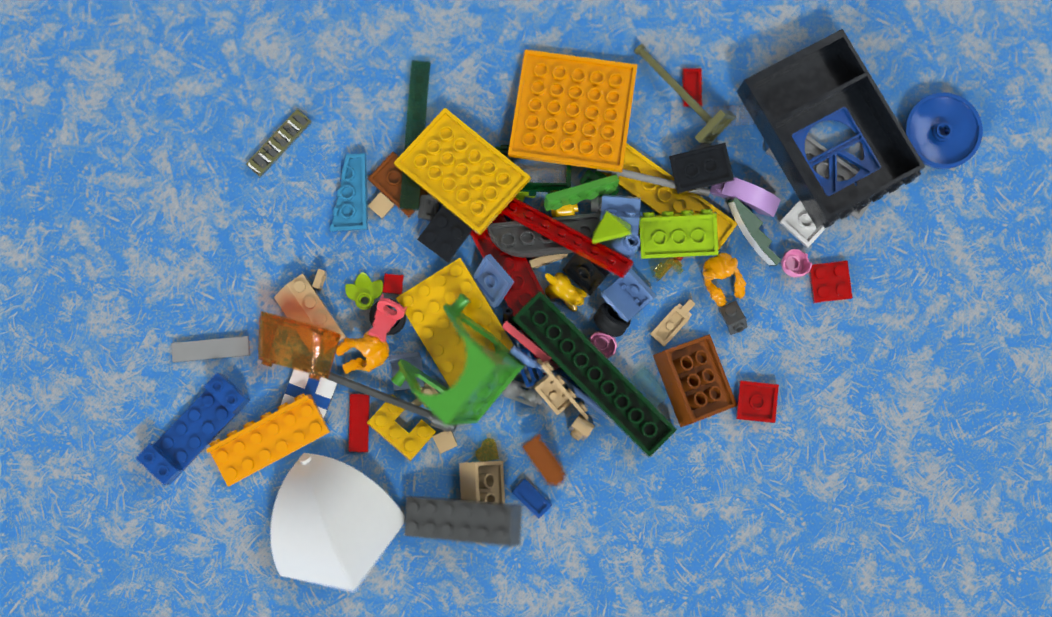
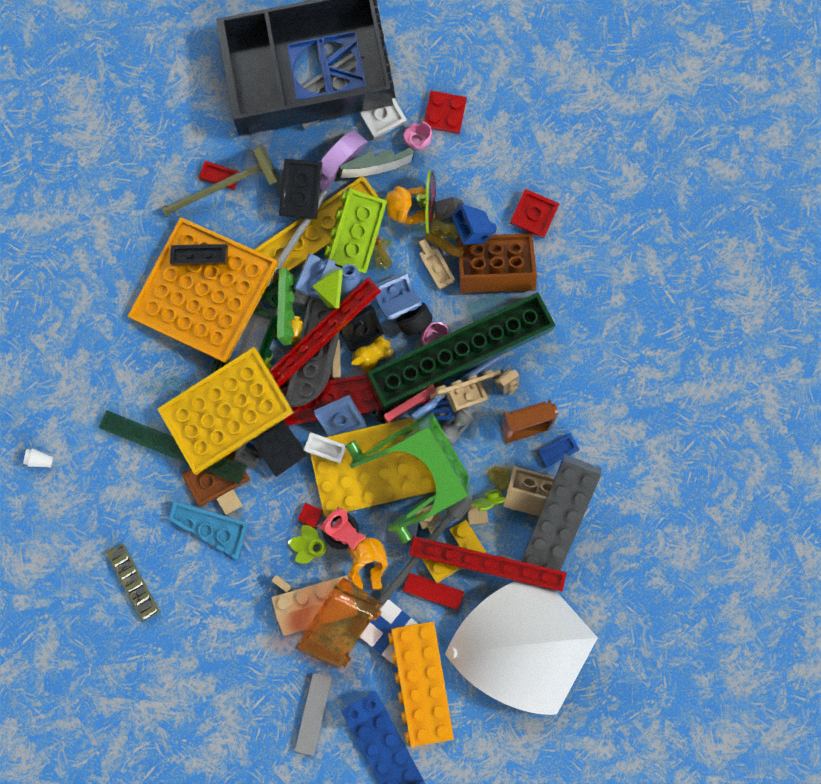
camera: 75 degrees left, 5 degrees down
(363, 14) = (35, 458): none -> white cone
(397, 465) = (487, 563): none -> red tile
(457, 276) = (325, 447): none -> white tile
(462, 449) = (491, 498): none -> lime plate
(474, 118) = (177, 383): none -> clear light blue tile
(603, 94) = (199, 254): none -> black plate
(694, 324) = (444, 245): none -> pearl gold tile
(710, 311) = (444, 230): none -> clear yellow plate
(723, 345) = (472, 225): none -> blue torso
(733, 295) = (430, 198): none -> shield

